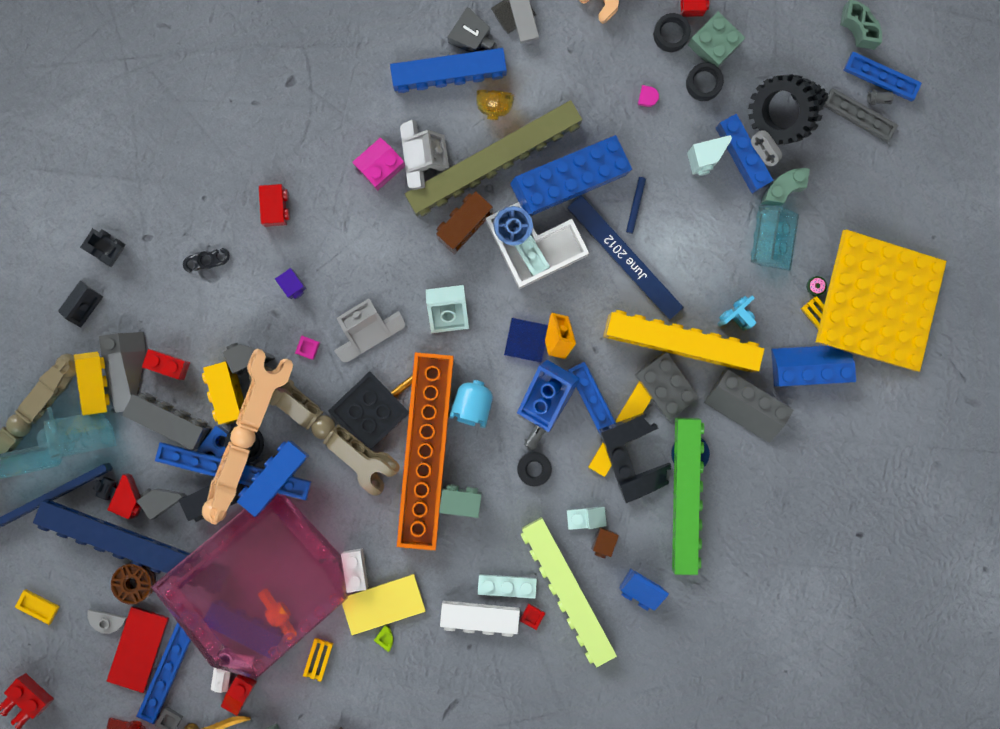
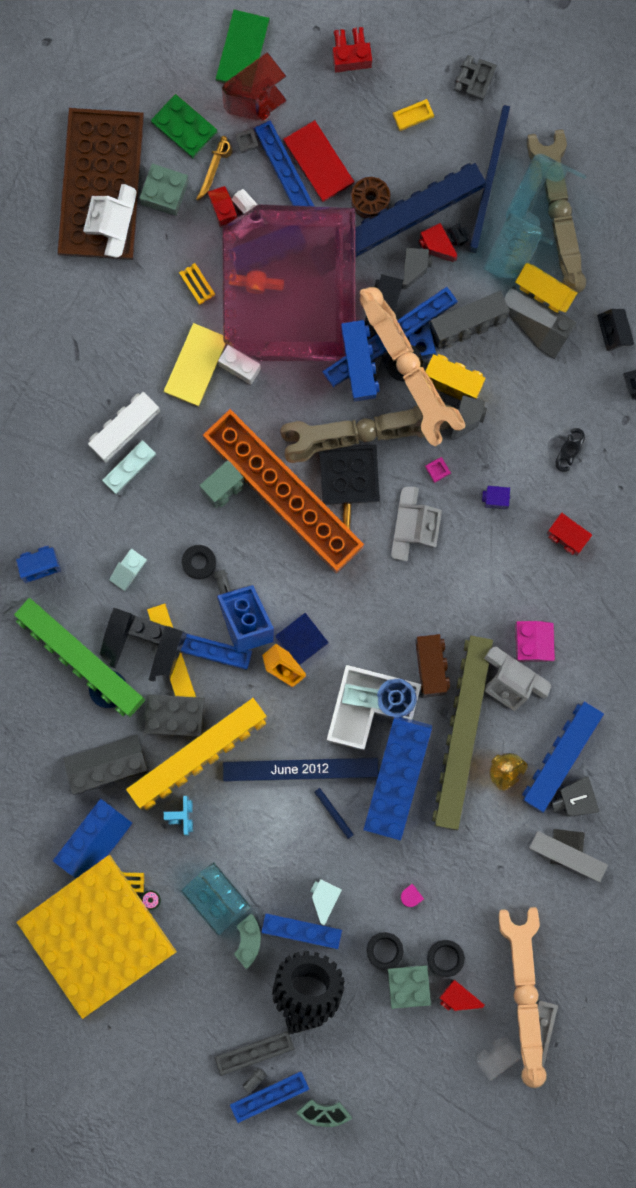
camera: 135 degrees right, 5 degrees down
(105, 622) = (359, 154): light grey plate -> none
(166, 364) = (514, 354): red brick -> none
(385, 638) = (169, 345): lime tile -> none
(447, 309) = (377, 598): light aqua slope -> none
(472, 404) = (288, 556): medium azure cylinder -> none
(532, 616) = (90, 467): red tile -> none
(570, 595) = (84, 508): yellowish green brick -> none
(604, 543) = (97, 566): reddish brown brick -> none
(766, 148) = (290, 947): light grey beam -> none

